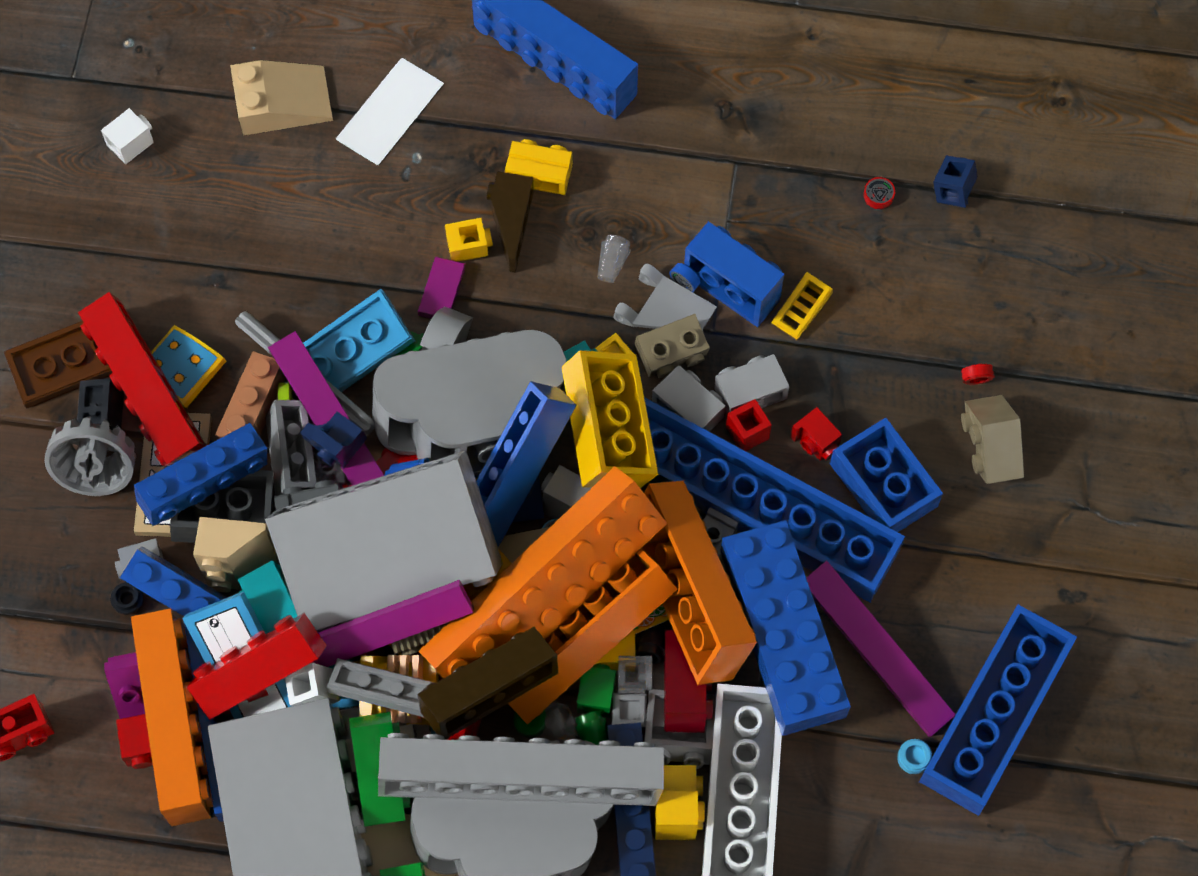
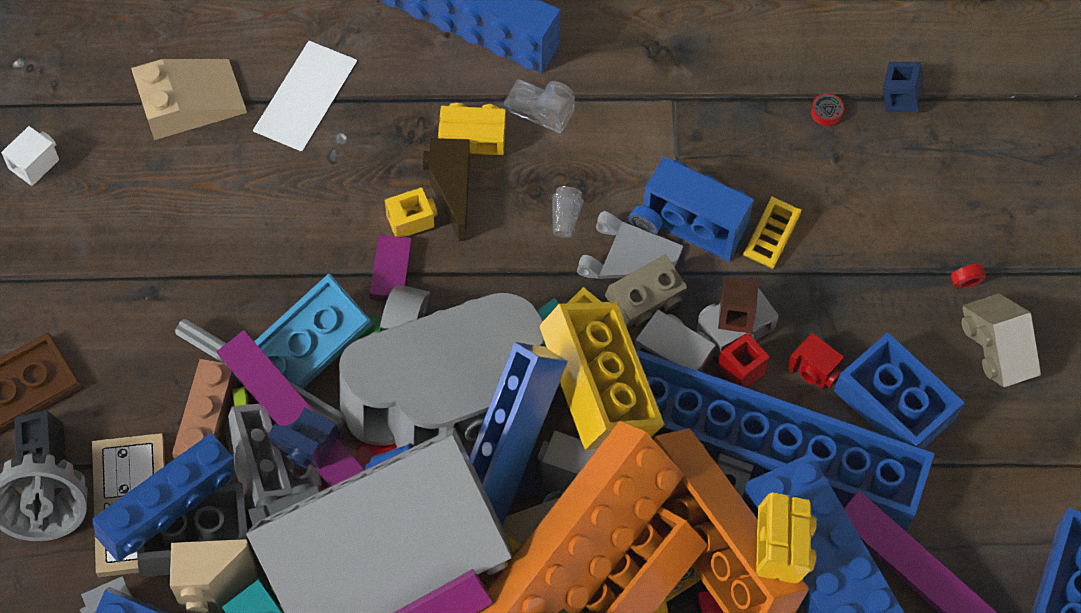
camera: 10 degrees left, 5 degrees down
(141, 379) = (82, 406): red brick -> none
(186, 363) = (121, 387): dark azure slope -> none
(614, 154) = (546, 106): none -> clear plate
(742, 594) = (785, 538): none -> yellow brick
(751, 372) = (738, 304): none -> copper brick

